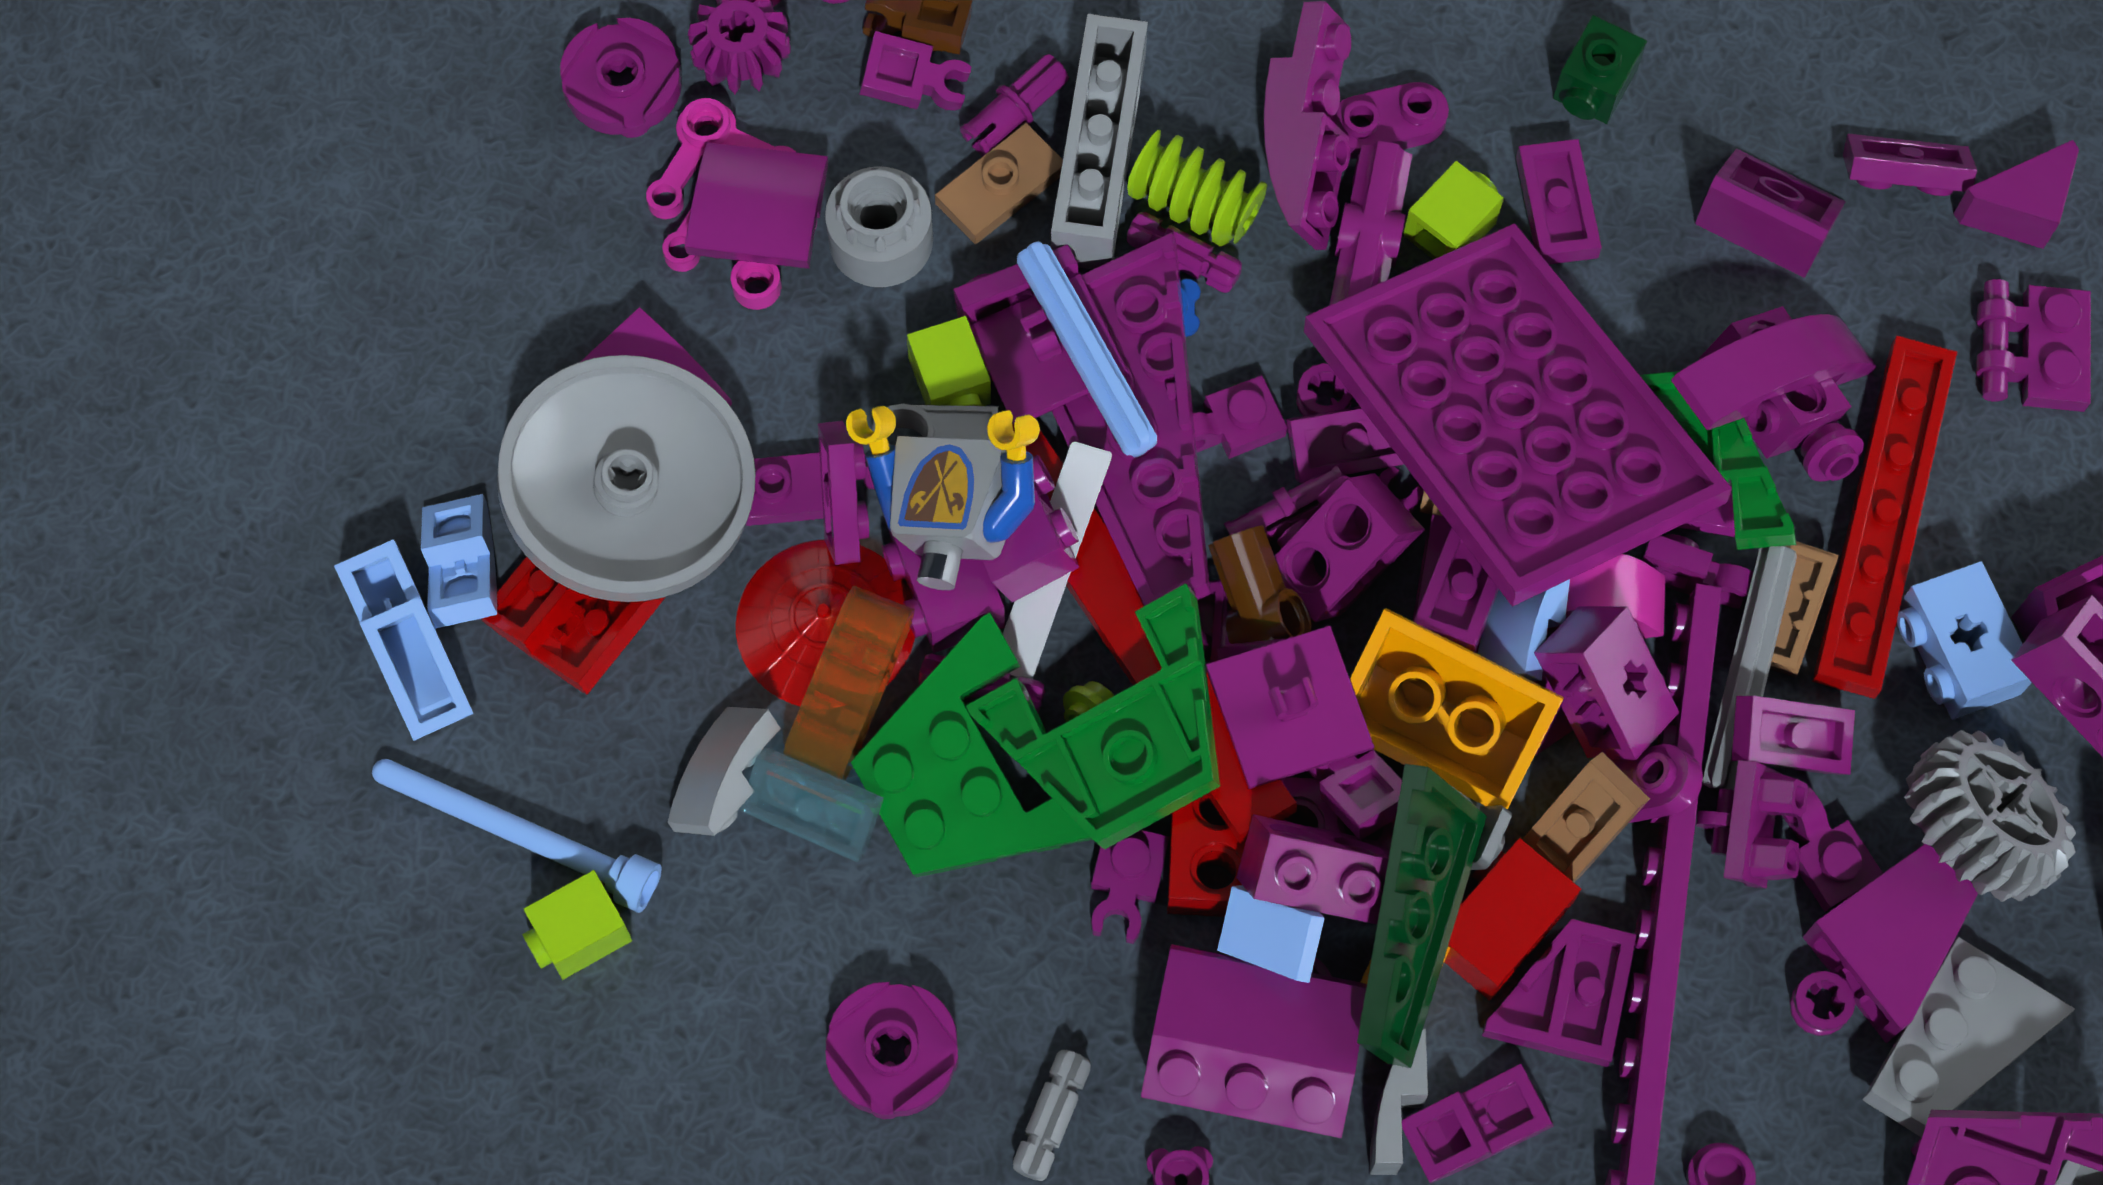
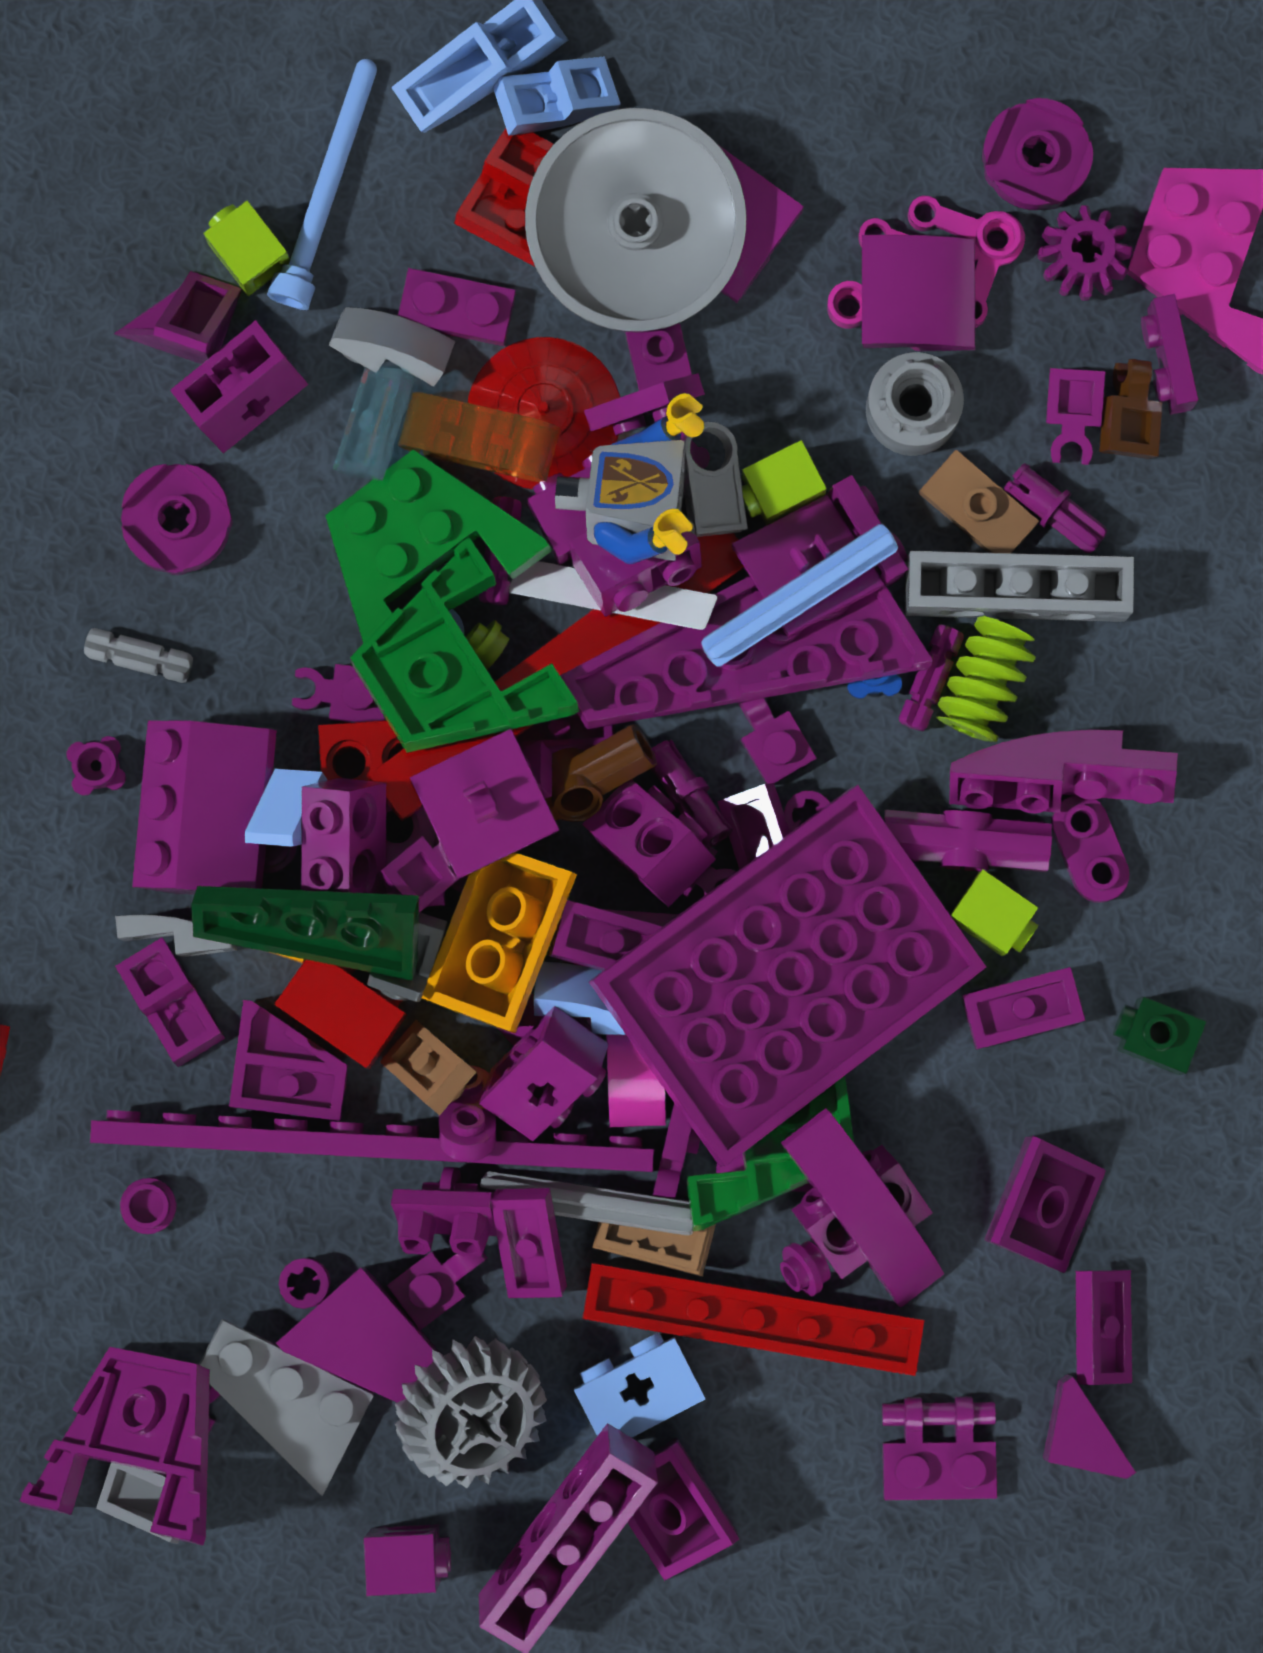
camera: 85 degrees right, 15 degrees up
(652, 1010) = (188, 320): none -> magenta slope
(686, 699) = (458, 306): none -> magenta plate
(747, 947) = (239, 387): none -> magenta brick

